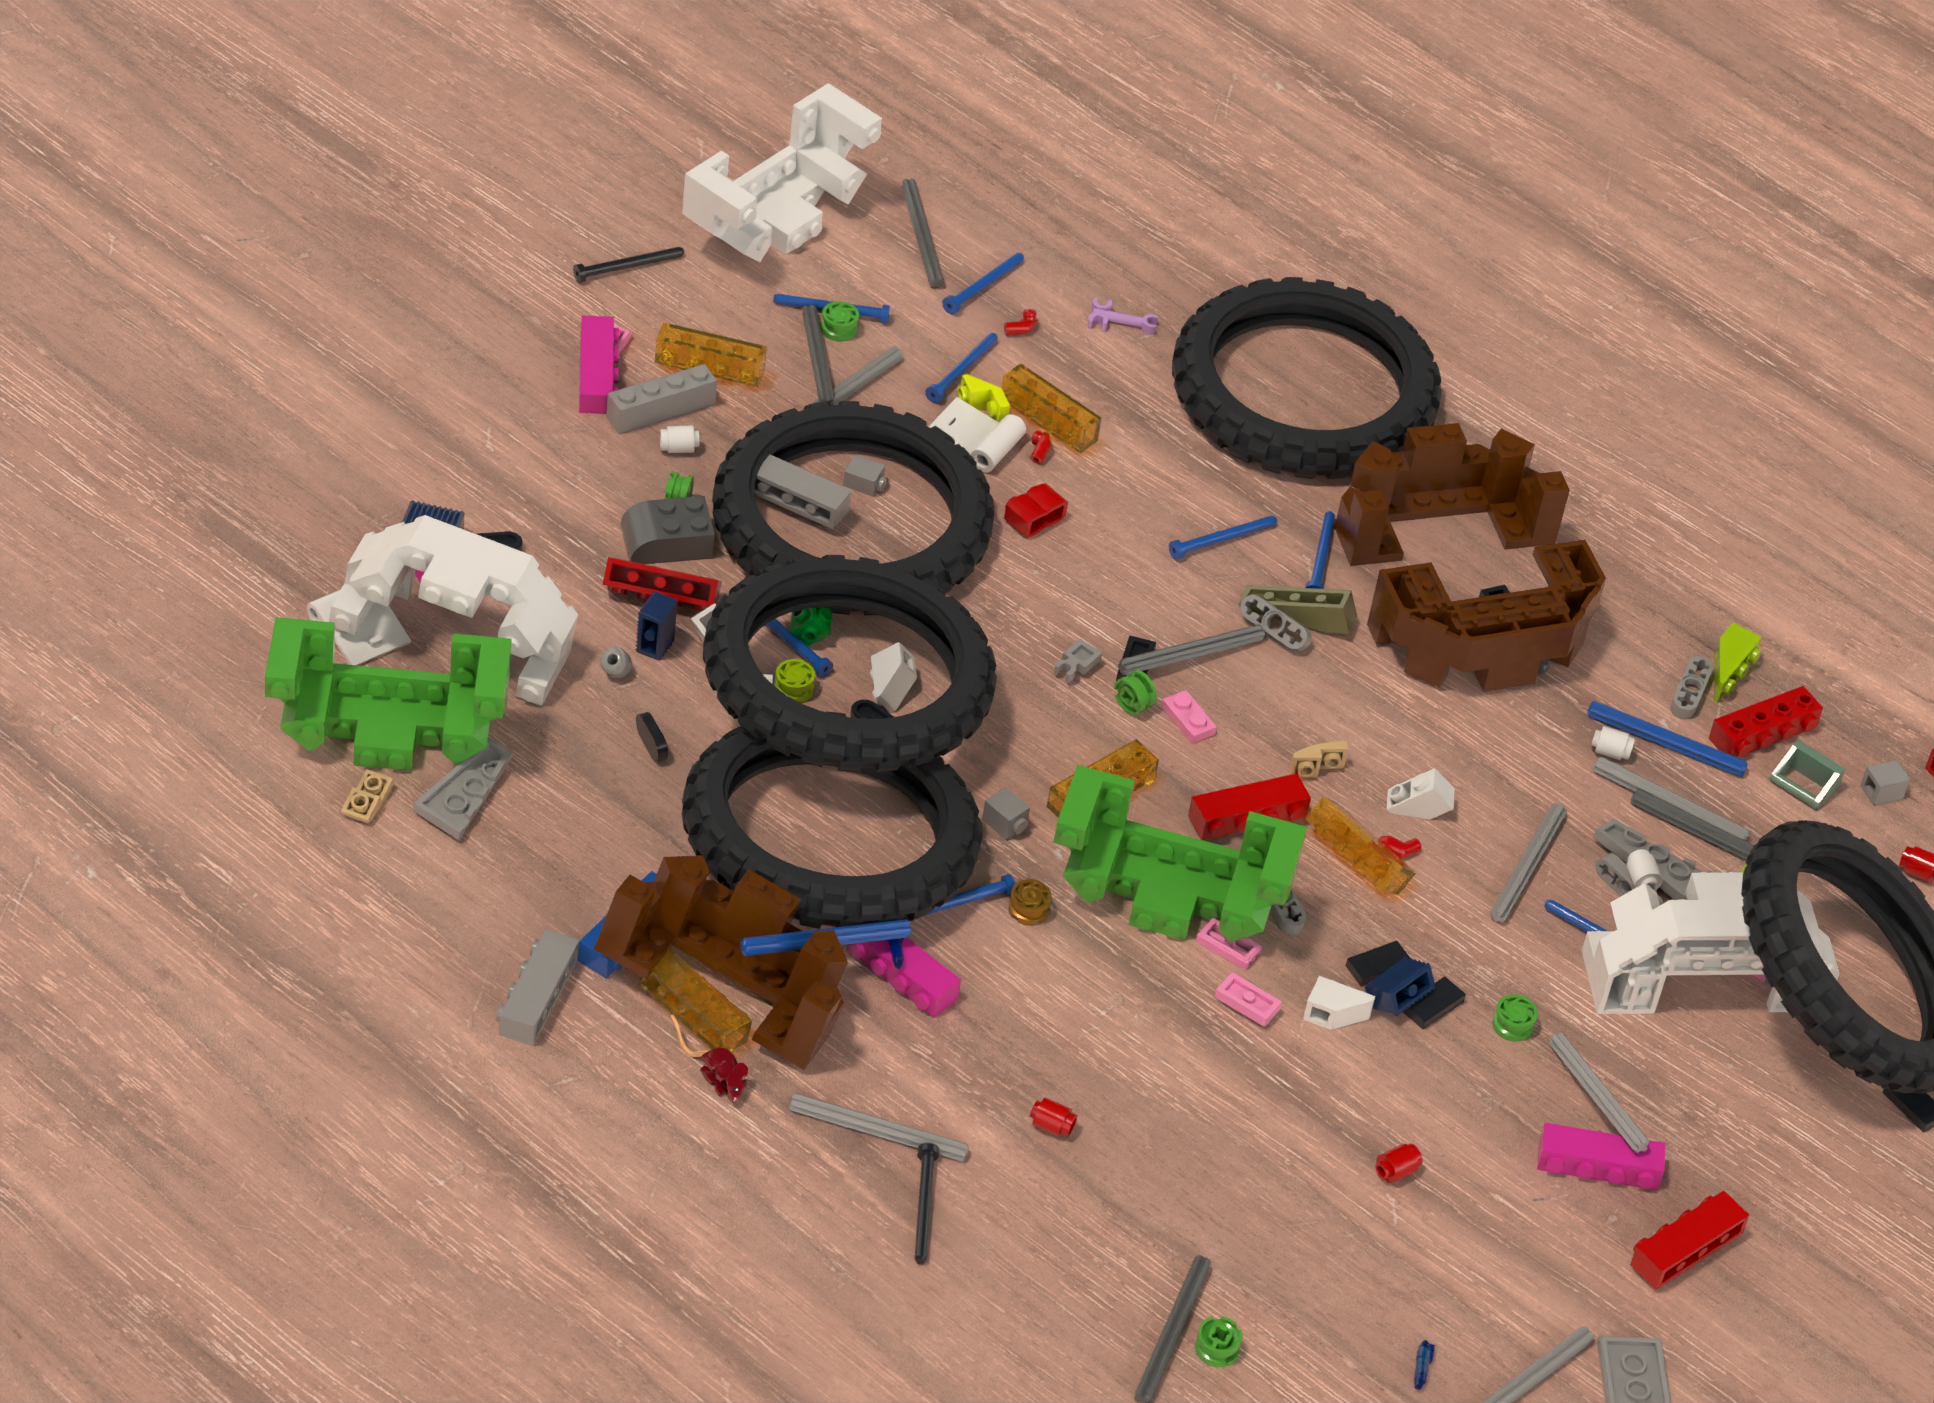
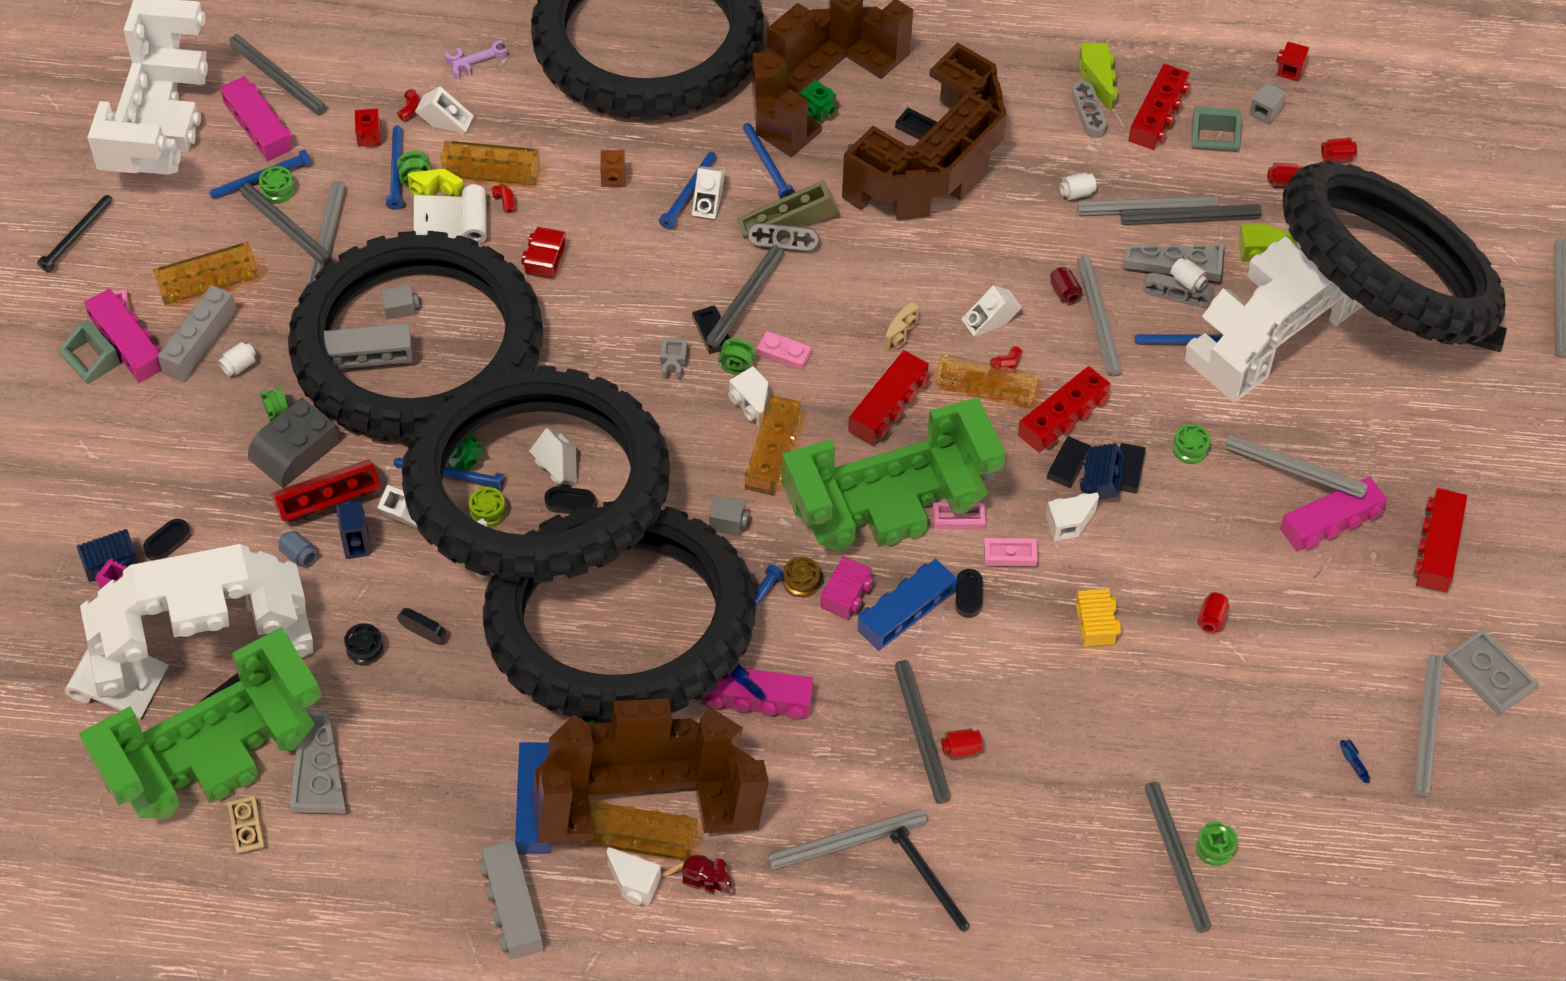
camera: 30 degrees left, 10 degrees up
(561, 378) = (89, 334): none -> sand green tile
(589, 722) = (364, 644): none -> black wheel
(597, 615) = (297, 549): none -> sand blue brick
(616, 662) = (338, 580): light grey piece -> none
(661, 1036) = (634, 876): none -> white slope
(845, 935) = (690, 727): blue axle -> none
(869, 257) = (256, 118): none -> dark pink brick
(953, 303) = (347, 119): blue bar -> none
(965, 319) = (367, 132): none -> red brick
(976, 368) = (412, 164): none -> bright green wheel
(1026, 1088) = (922, 732): none -> dark grey axle
(1048, 345) = (444, 111): none -> white slope
(1062, 934) = (846, 587): none -> dark pink brick
(1107, 980) = (906, 604): none -> blue brick
(1121, 726) = (750, 393): none -> white slope
(1163, 476) = (612, 168): none -> dark orange brick
(1177, 1009) = (969, 593): none -> black tile
(1238, 545) = (708, 192): none -> white slope
(1279, 1098) = (1097, 617): none -> yellow brick
(1414, 916) = (1064, 409): none -> red brick
(1417, 529) = (820, 101): none -> green brick
(1517, 817) = (1065, 285): none -> dark red brick
(1667, 738) = (1105, 159): blue axle -> none

